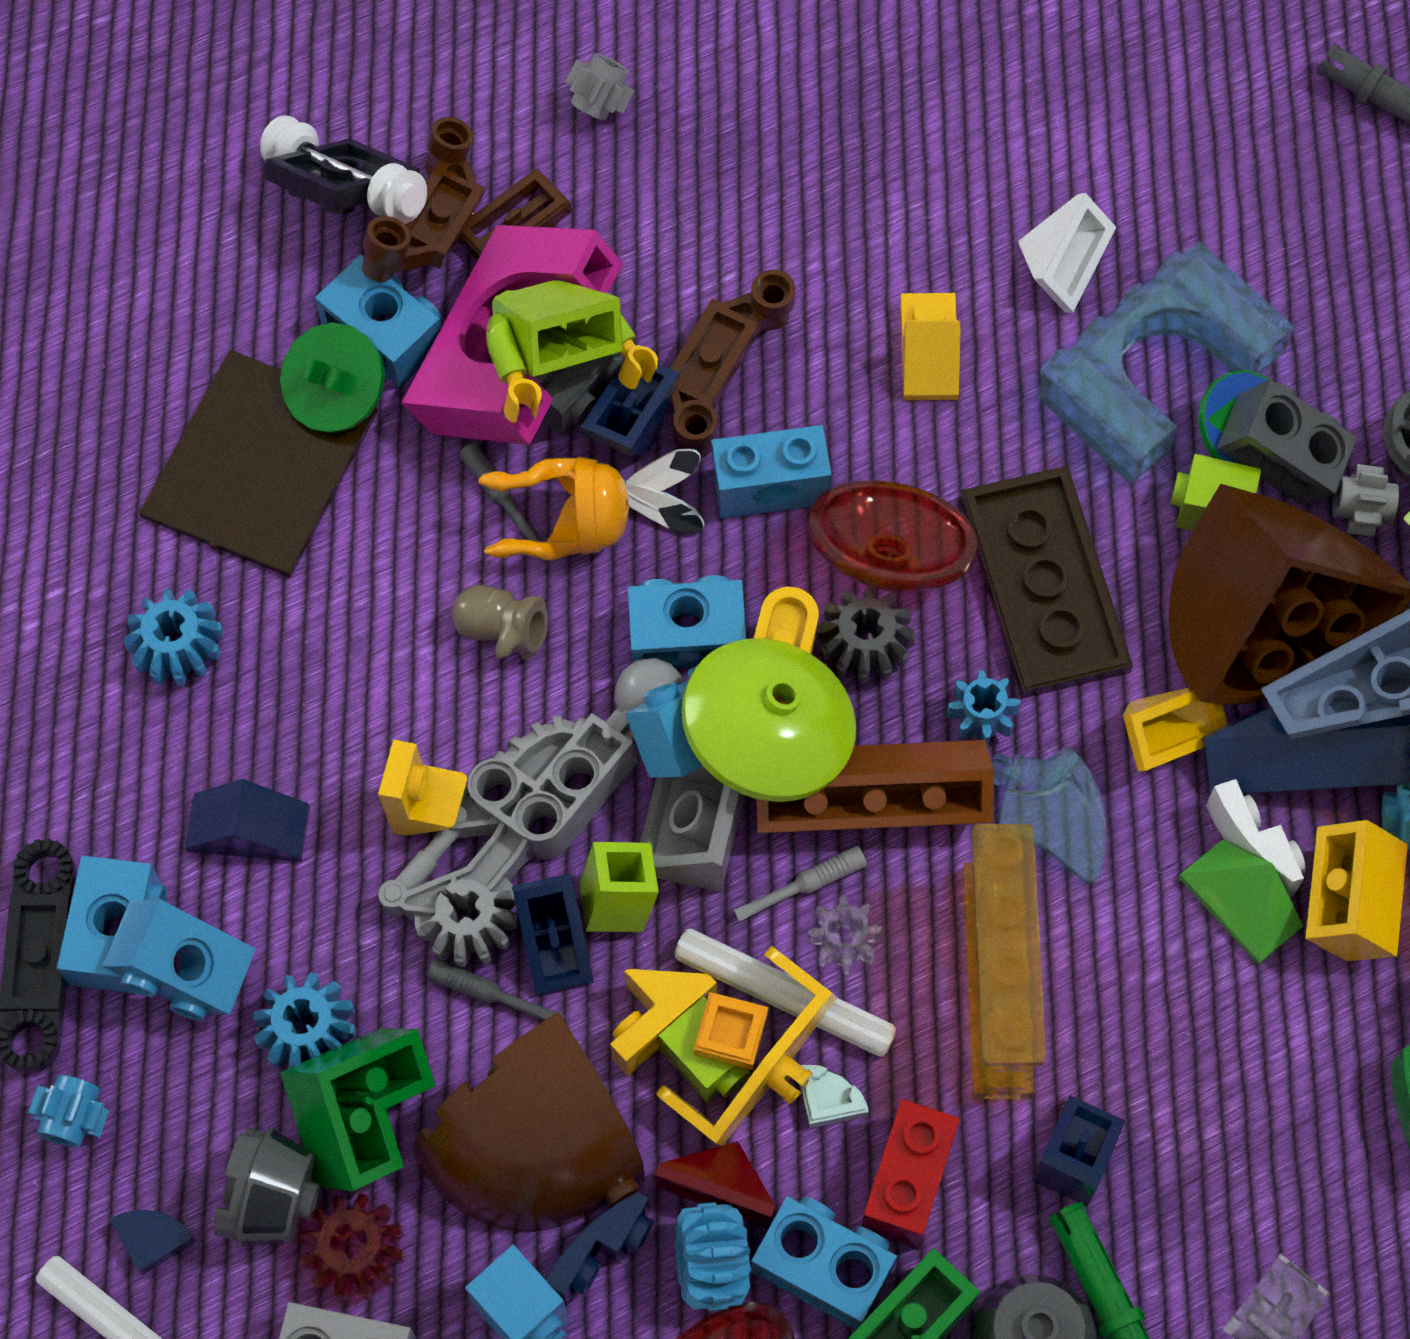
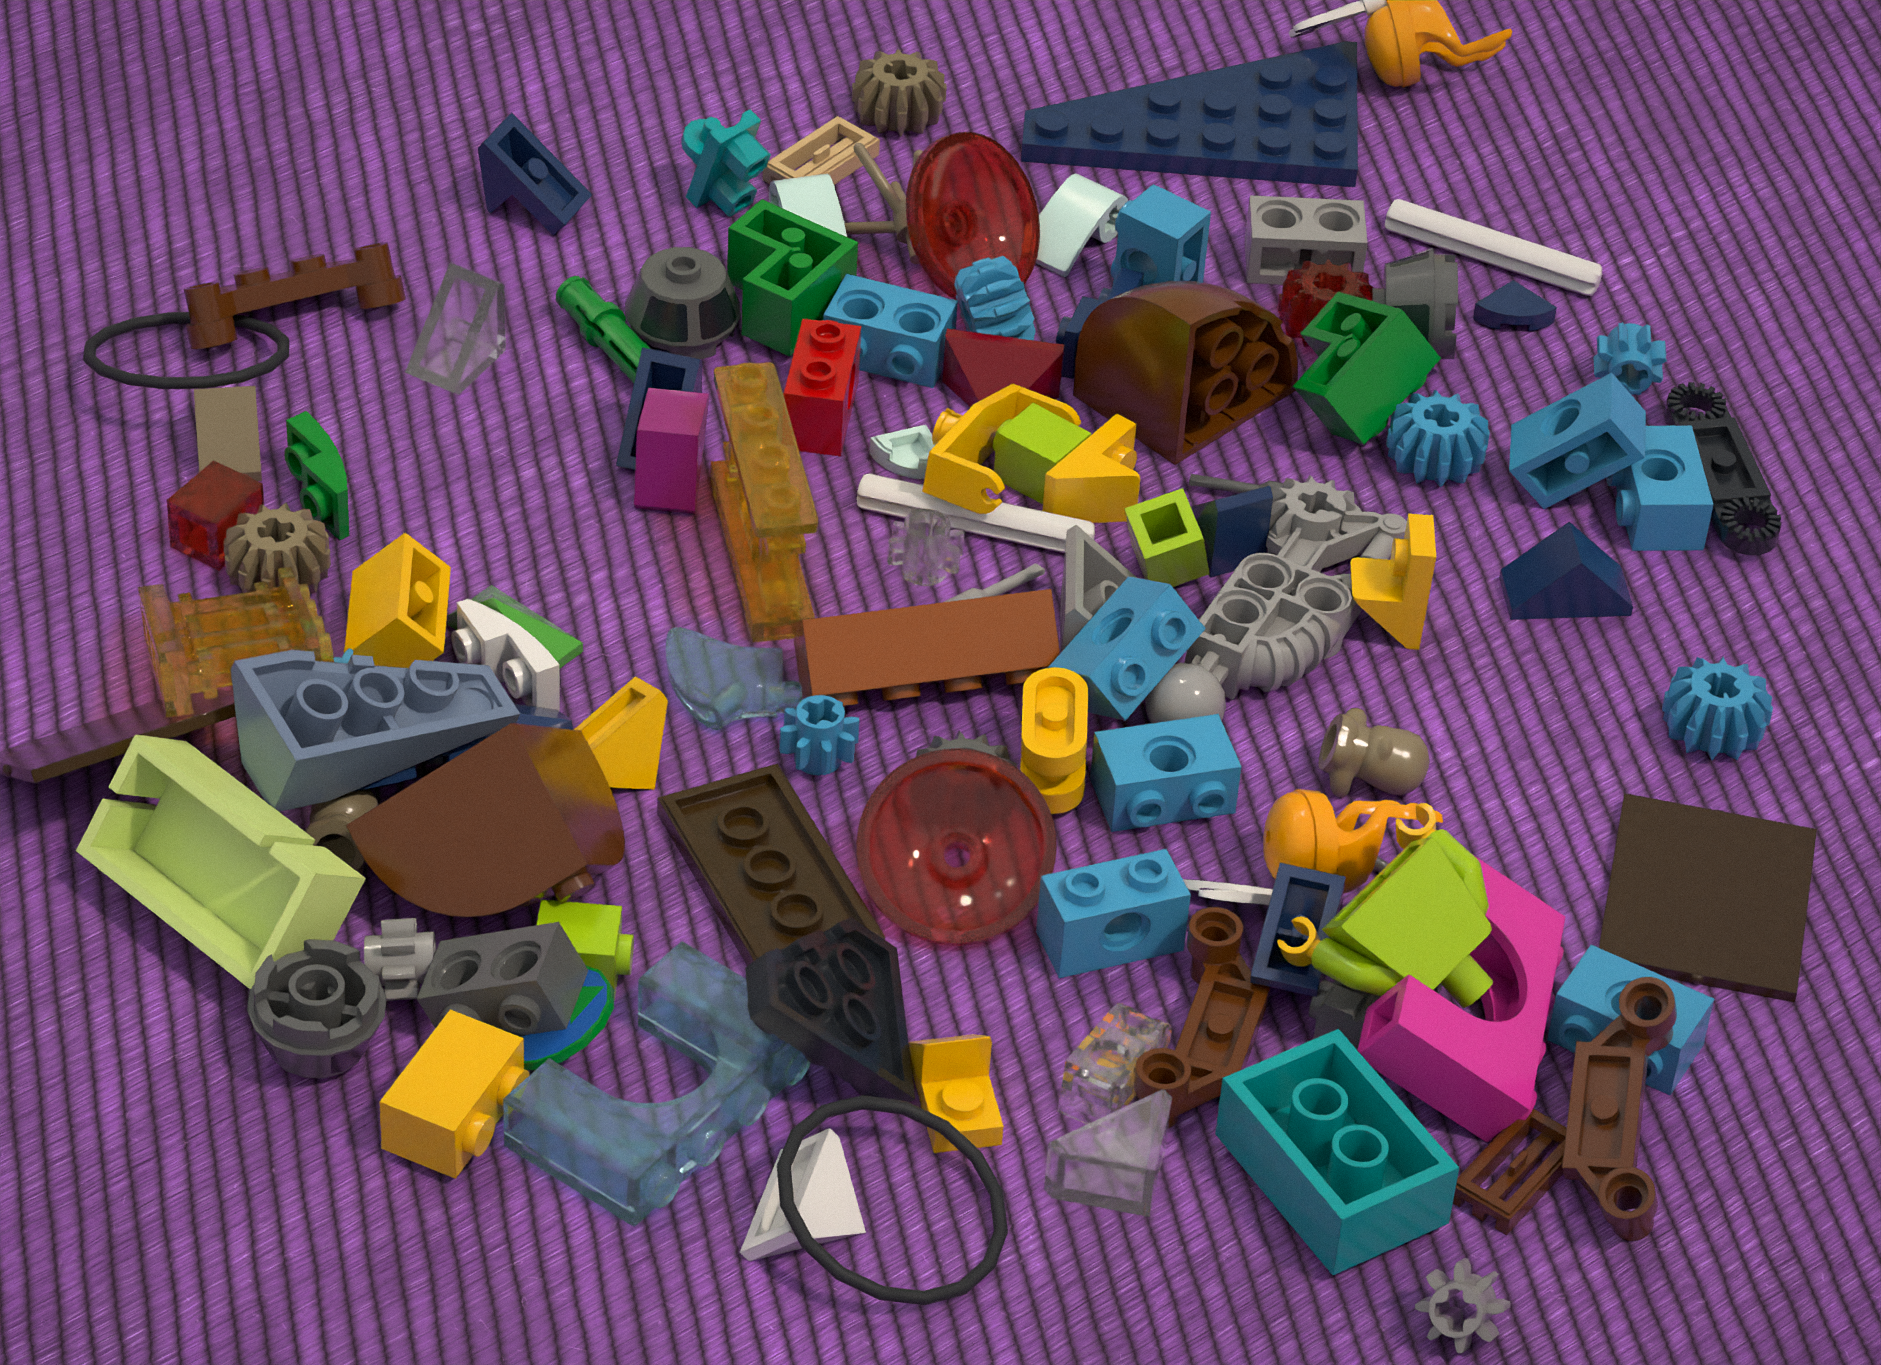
camera: 165 degrees right, 25 degrees down
(332, 377) = (1658, 942): green piece -> none
(340, 172) = (1744, 1127): plate -> none
(657, 212) = (1336, 1151): none -> teal brick
(731, 1030) = (1021, 431): light orange tile -> none
(754, 740) = (1055, 639): lime dish -> none
(800, 334) = (1102, 1068): none -> clear leg
(824, 245) = (1113, 1158): none -> clear slope
(1018, 380) = (839, 1006): none -> black plate
(1027, 287) = (858, 1281): none -> black piece
(1076, 1090) = (670, 450): none -> magenta slope
(1332, 351) = (452, 1094): none -> yellow brick

